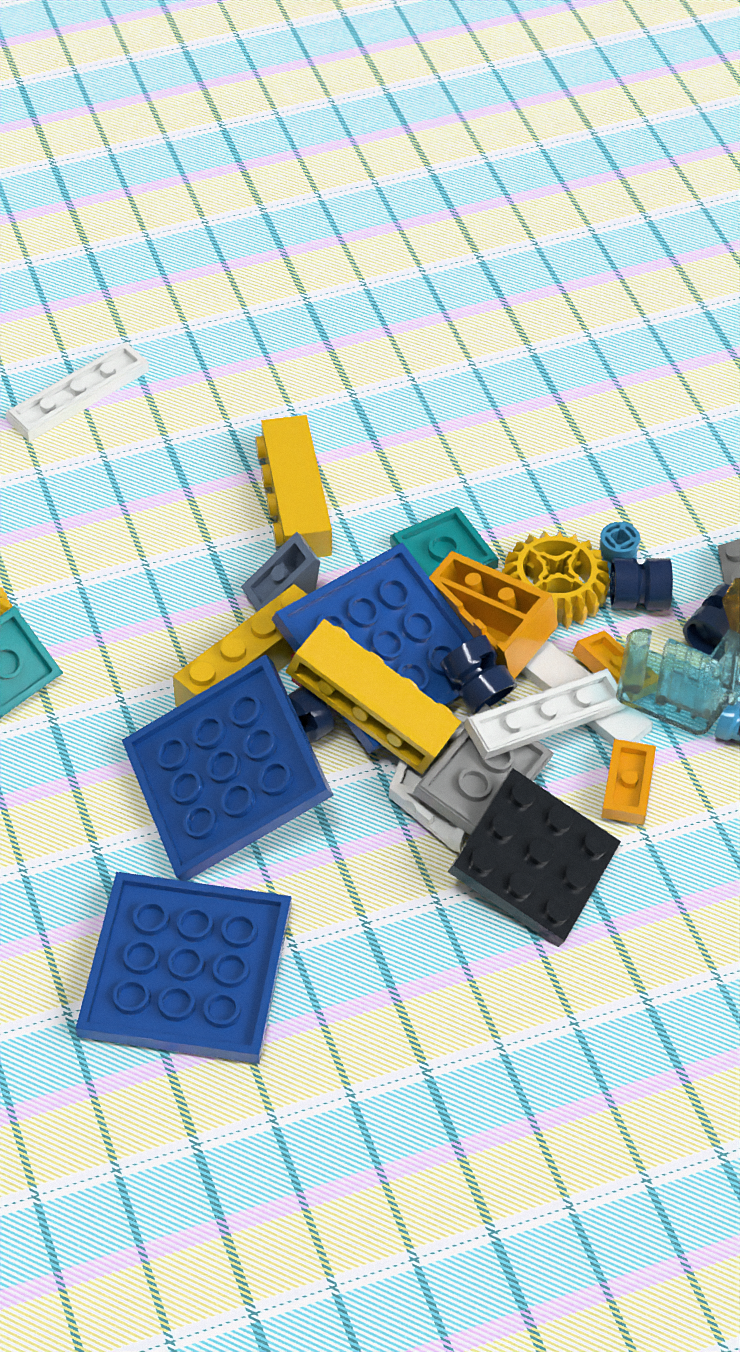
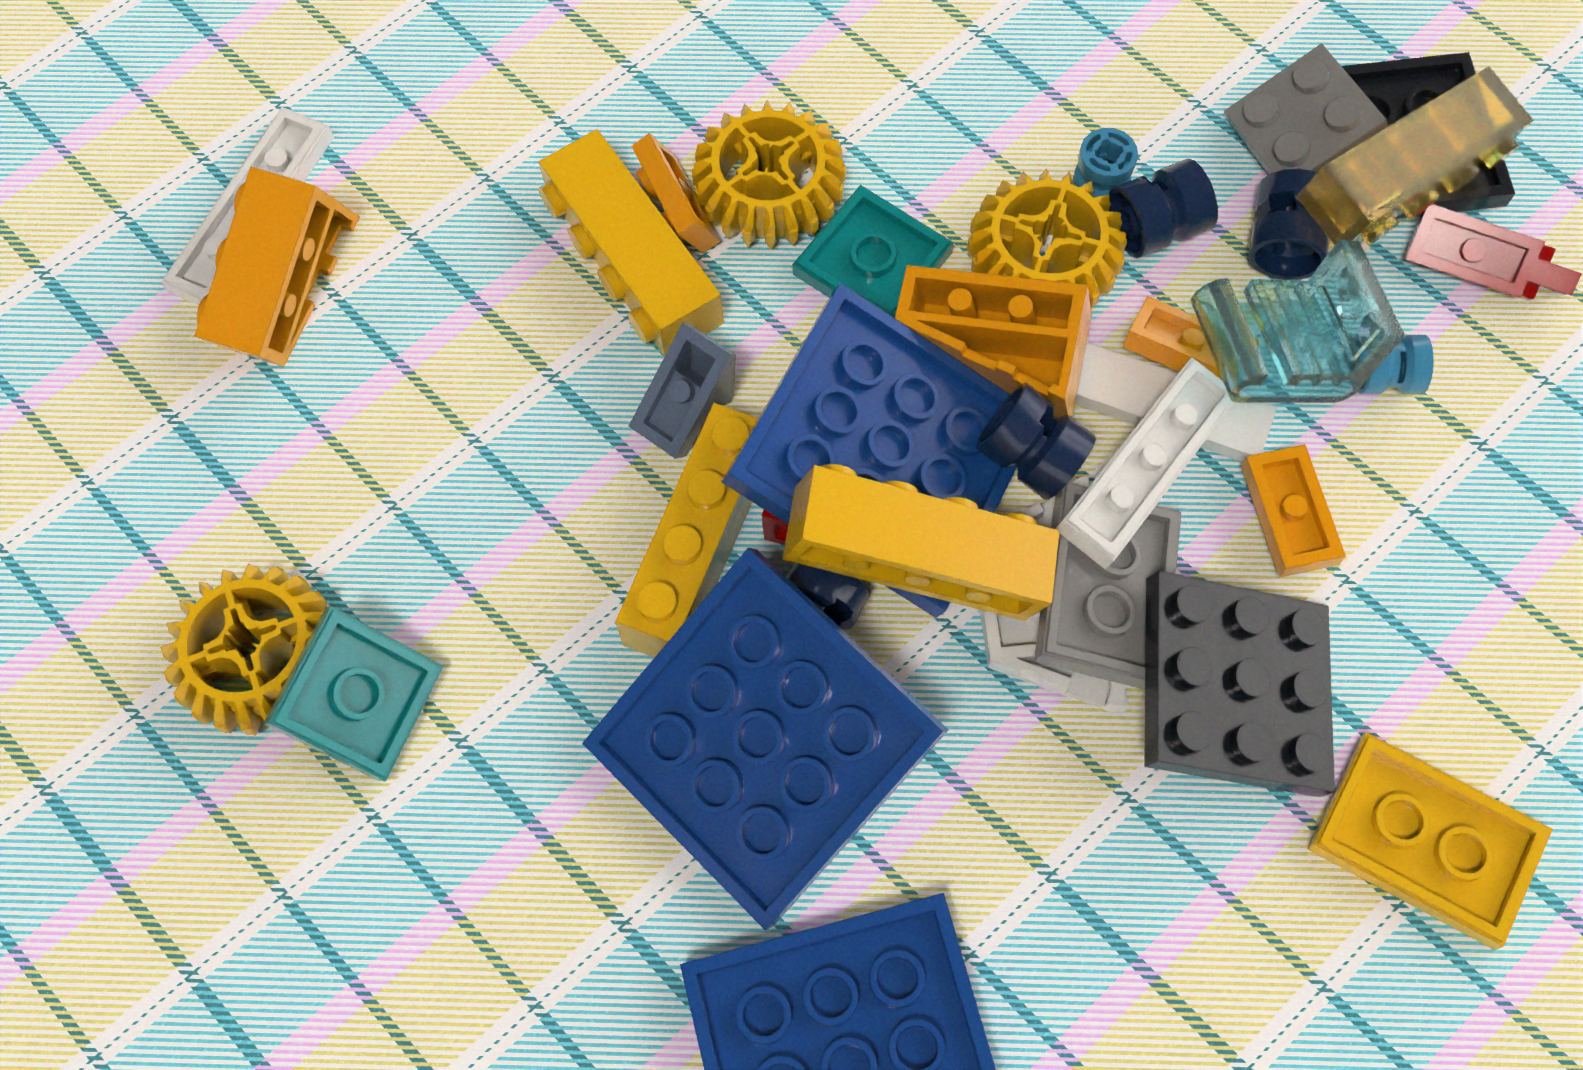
camera: 20 degrees left, 15 degrees up
(74, 422) = (270, 265): none -> light orange wedge
(338, 470) = (666, 180): none -> light orange plate
(402, 479) = (764, 193): none -> yellow gear
(613, 993) = (1431, 841): none -> yellow tile

